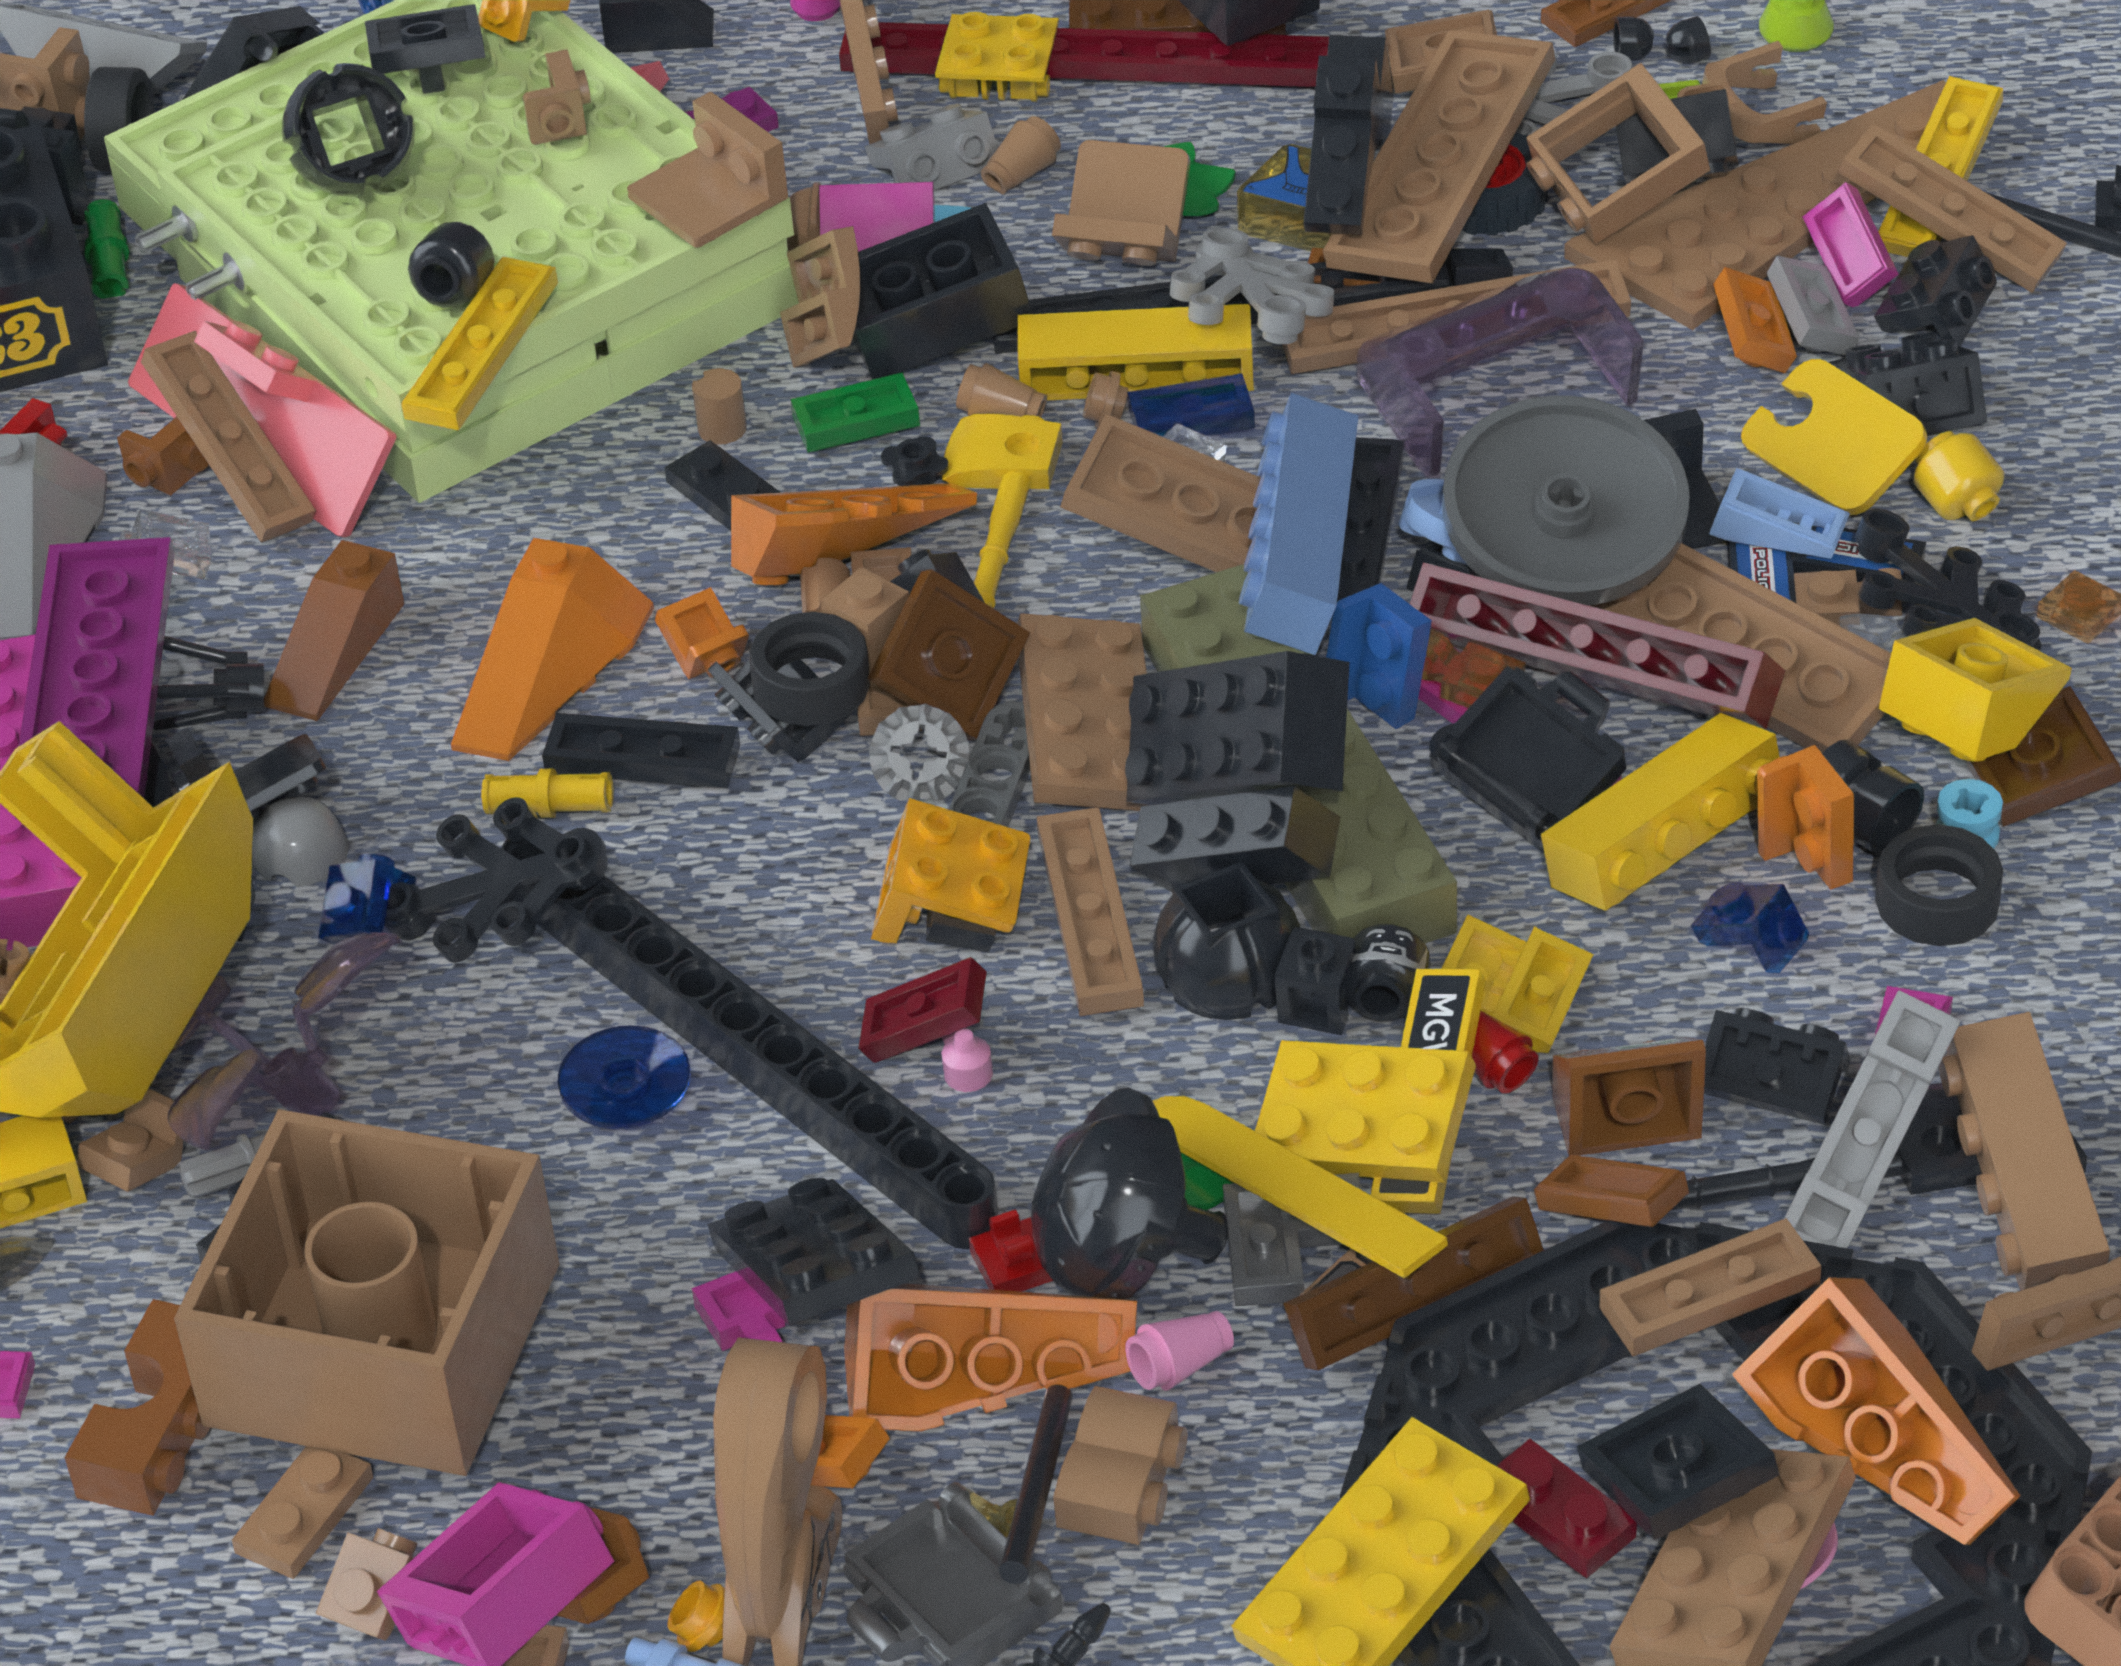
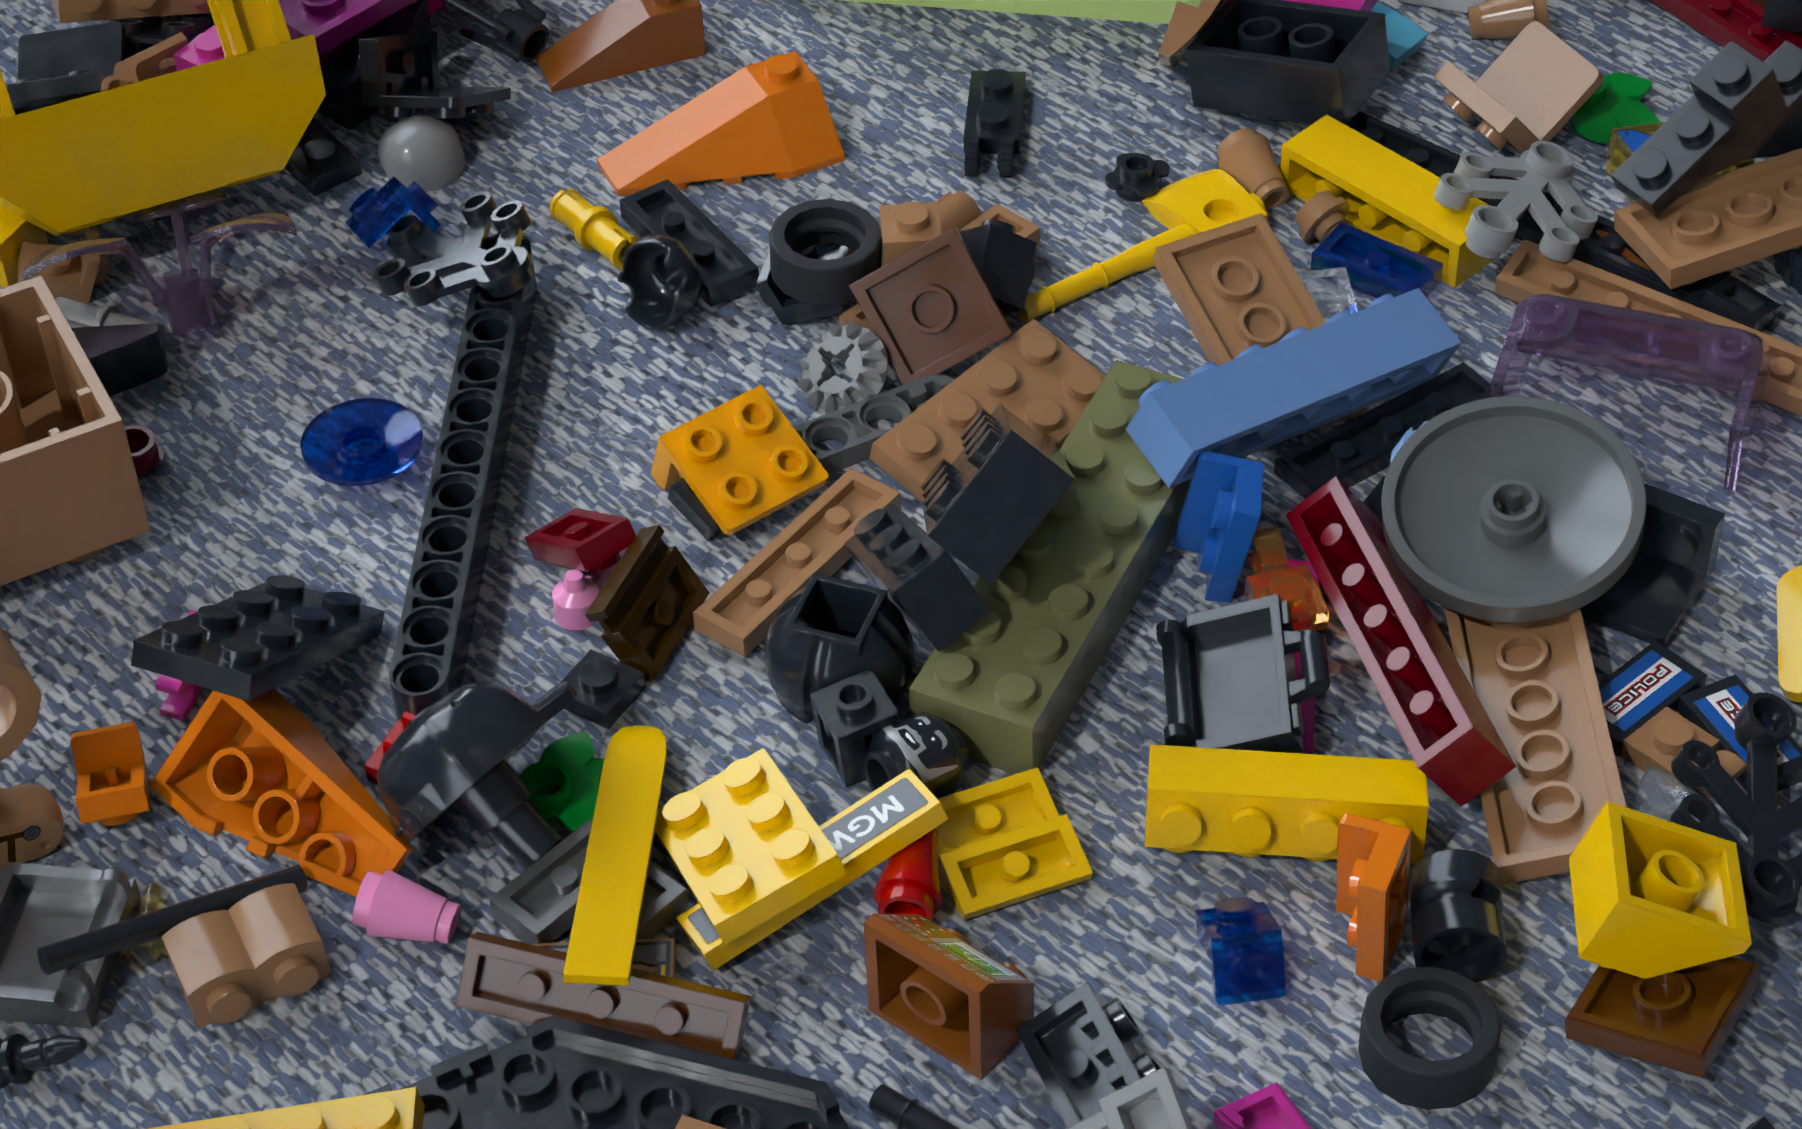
camera: 45 degrees right, 0 degrees up
(681, 792) = (661, 281): none -> black hair
(701, 634) = (832, 179): orange bracket -> none
(719, 406) = (1057, 52): medium nougat piece -> none
(790, 530) = (992, 168): orange wedge -> none
(855, 412) = (1145, 116): green plate -> none
(1041, 1017) = (647, 602): none -> dark brown plate
(1068, 1100) = (603, 688): none -> black plate
(1611, 1190) = (832, 1056): dark orange tile -> none
(1764, 514) = (1699, 612): light blue slope -> none
(1973, 807) = (1541, 1021): medium azure wheel -> none

